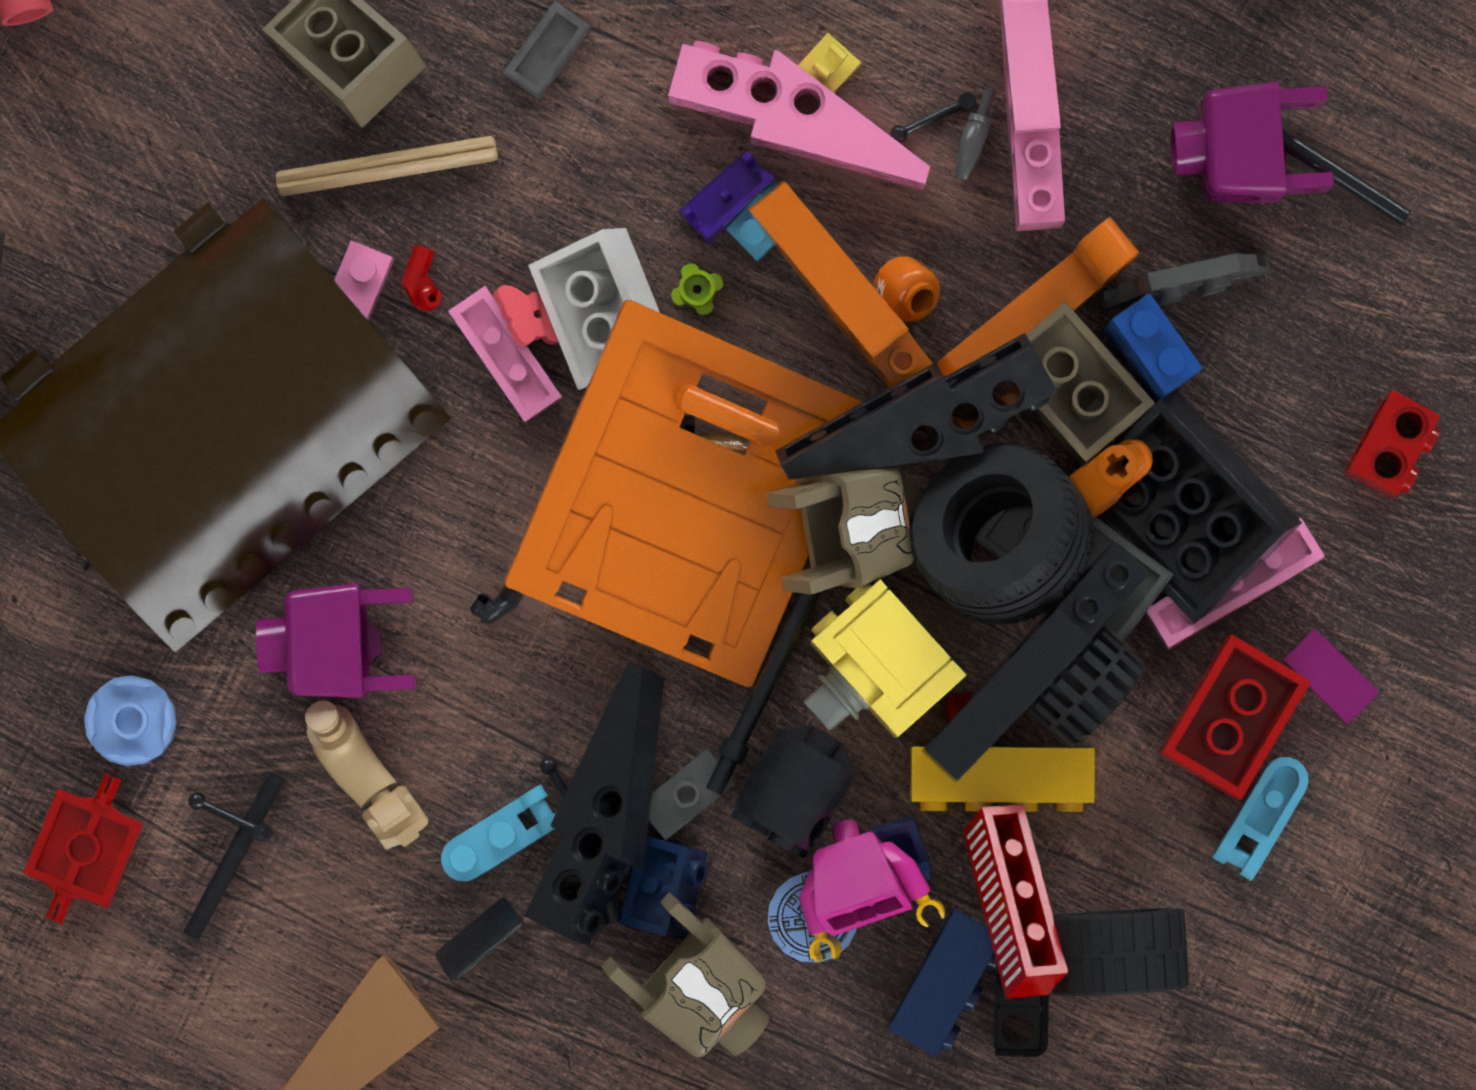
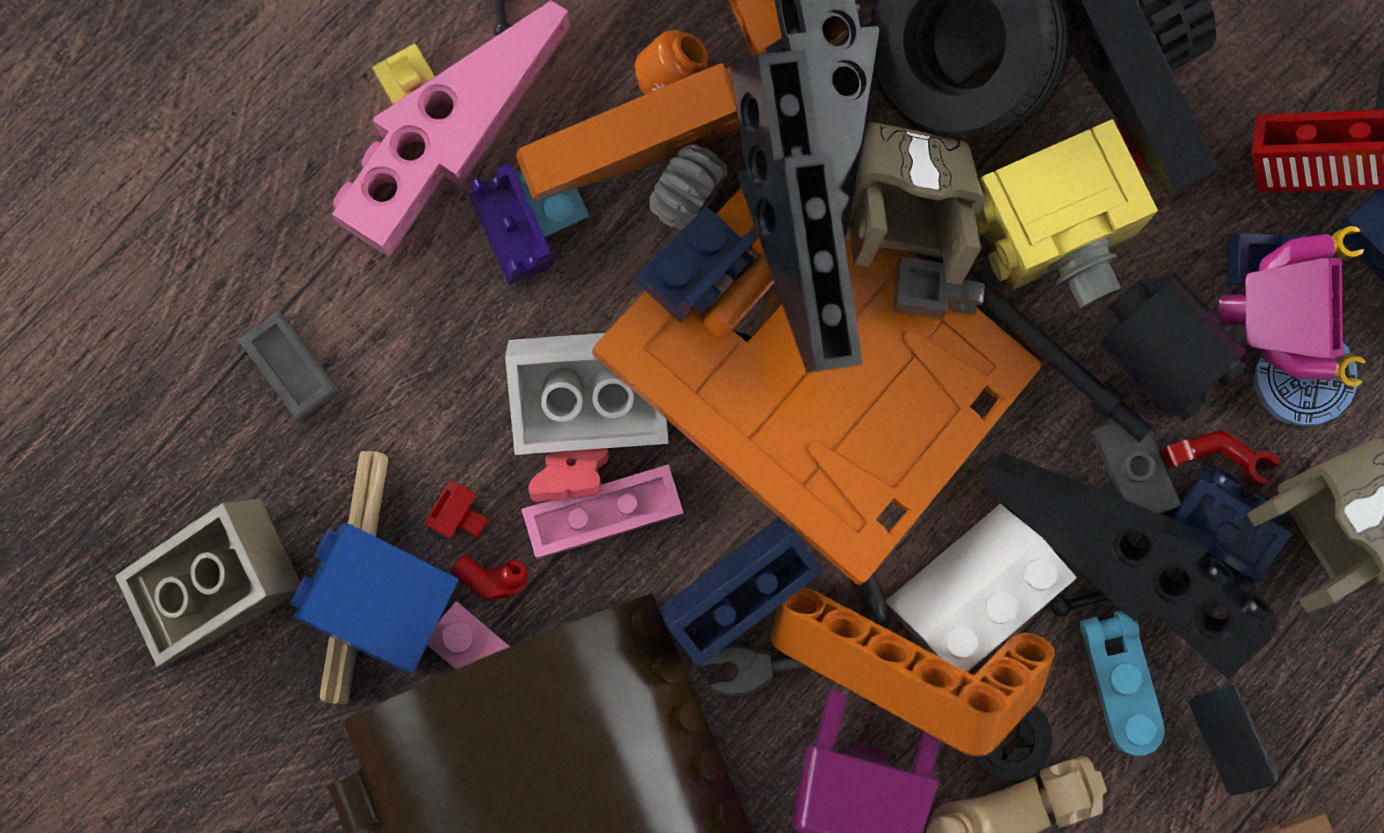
camera: 75 degrees left, 5 degrees down
(370, 187) = (373, 597): none -> blue brick
(409, 737) = (1021, 761): none -> black gear
(415, 522) = (753, 666): none -> dark grey hand
(437, 650) = (910, 681): none -> orange beam
(465, 230) = (452, 512): none -> red tile
(469, 487) = (739, 591): none -> dark blue brick
(536, 689) = (980, 589): none -> white slope
(708, 282) = (598, 273): lime plate -> none
(730, 362) = (694, 263): none -> dark blue bracket
(731, 860) = (1228, 446): none -> red arm
(772, 562) = (923, 290): none -> dark grey plate
(795, 429) = (796, 206): none -> black brick
(804, 336) = (688, 185): none -> light grey gear
(1008, 775) = (1225, 110): yellow brick -> none

